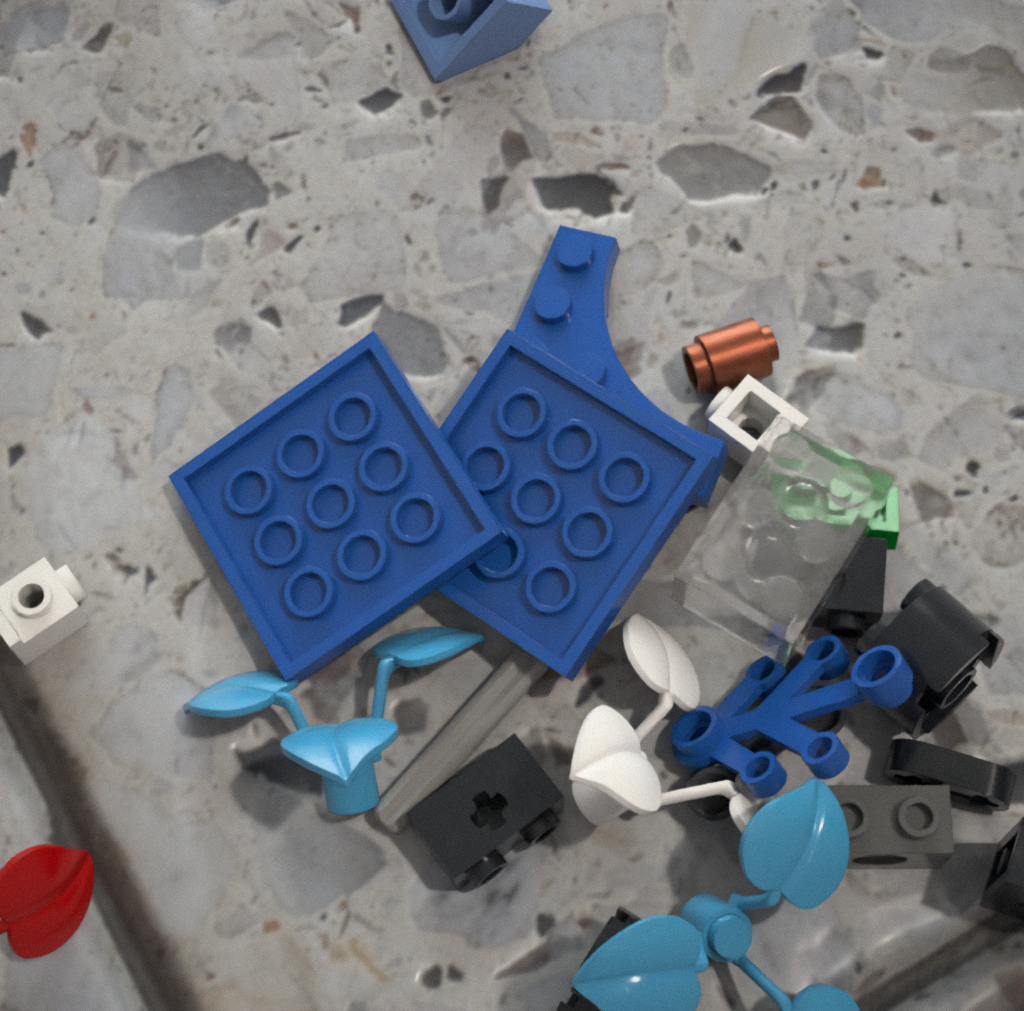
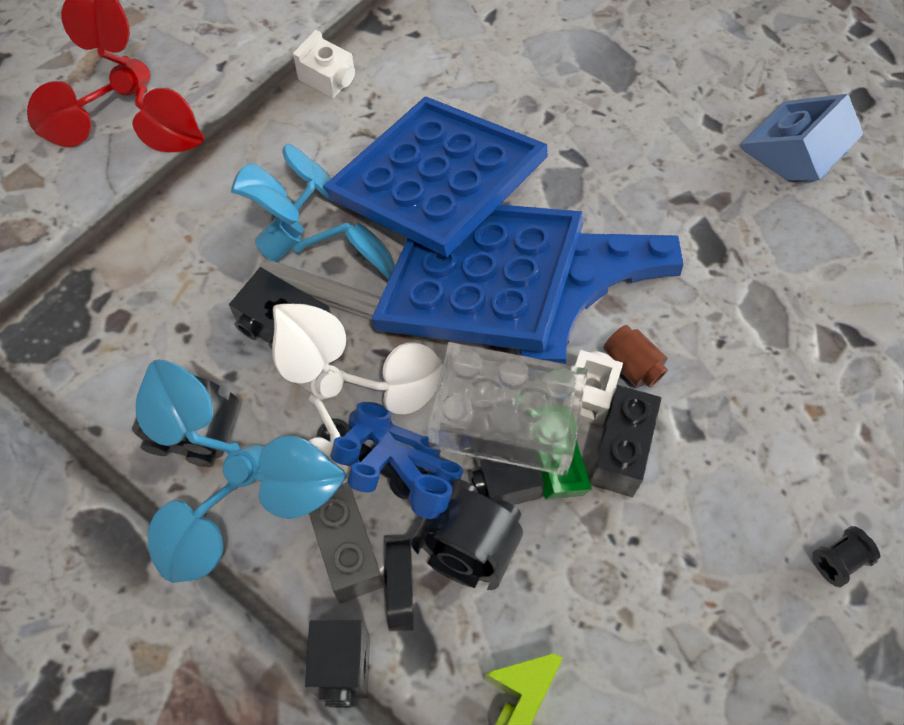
camera: 65 degrees right, 5 degrees down
(854, 412) = (625, 441): none -> black brick

